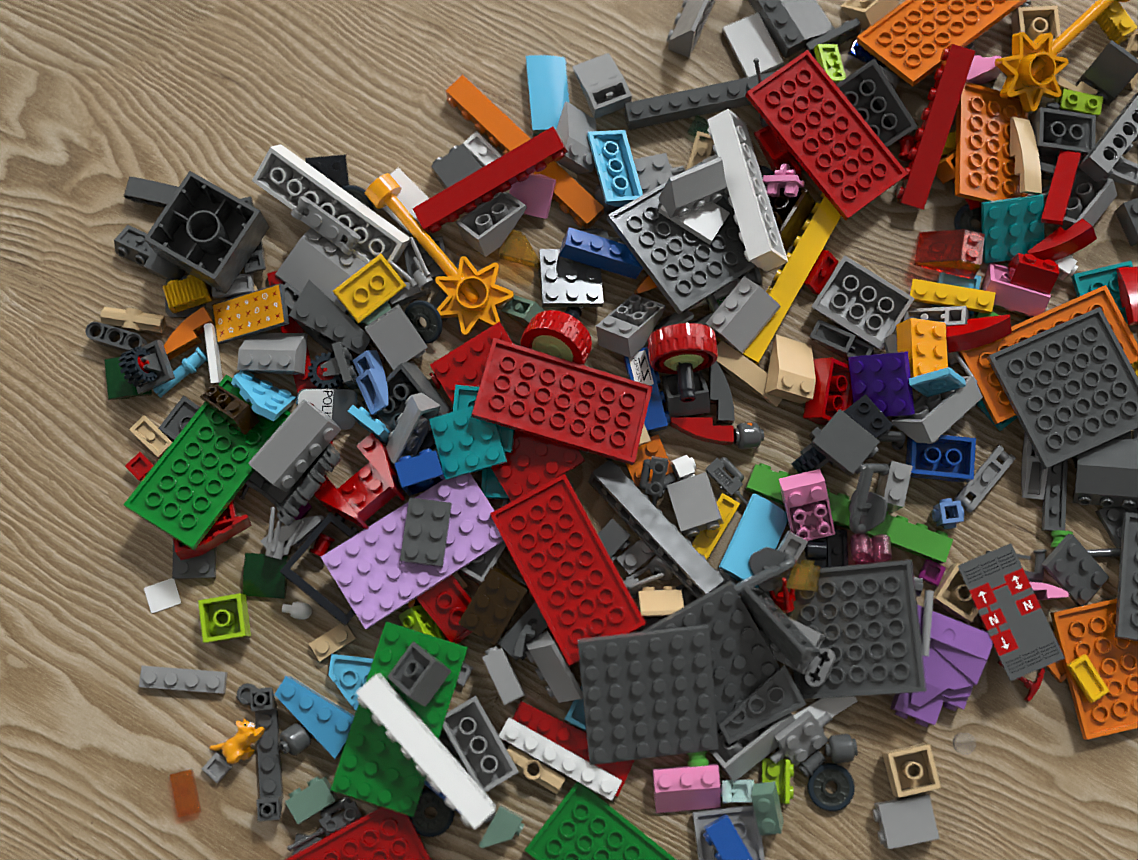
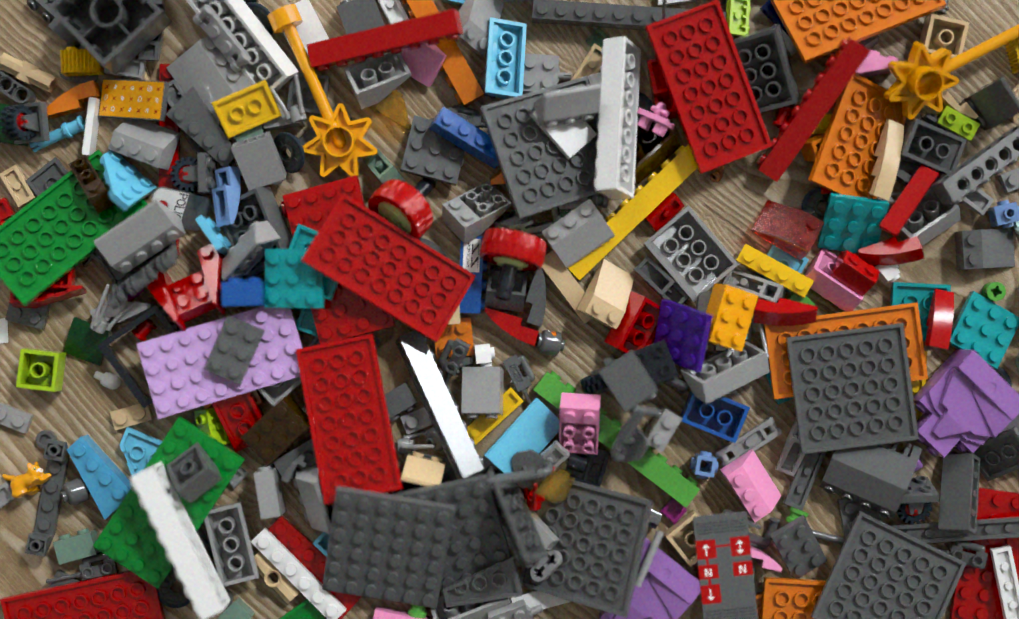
camera: 20 degrees right, 10 degrees up
(860, 220) = (717, 173): none -> dark orange arm
(870, 550) = (623, 478): clear pink piece -> none
(937, 382) = (730, 350): medium azure tile -> none
(1003, 519) = (752, 485): none -> bright pink slope

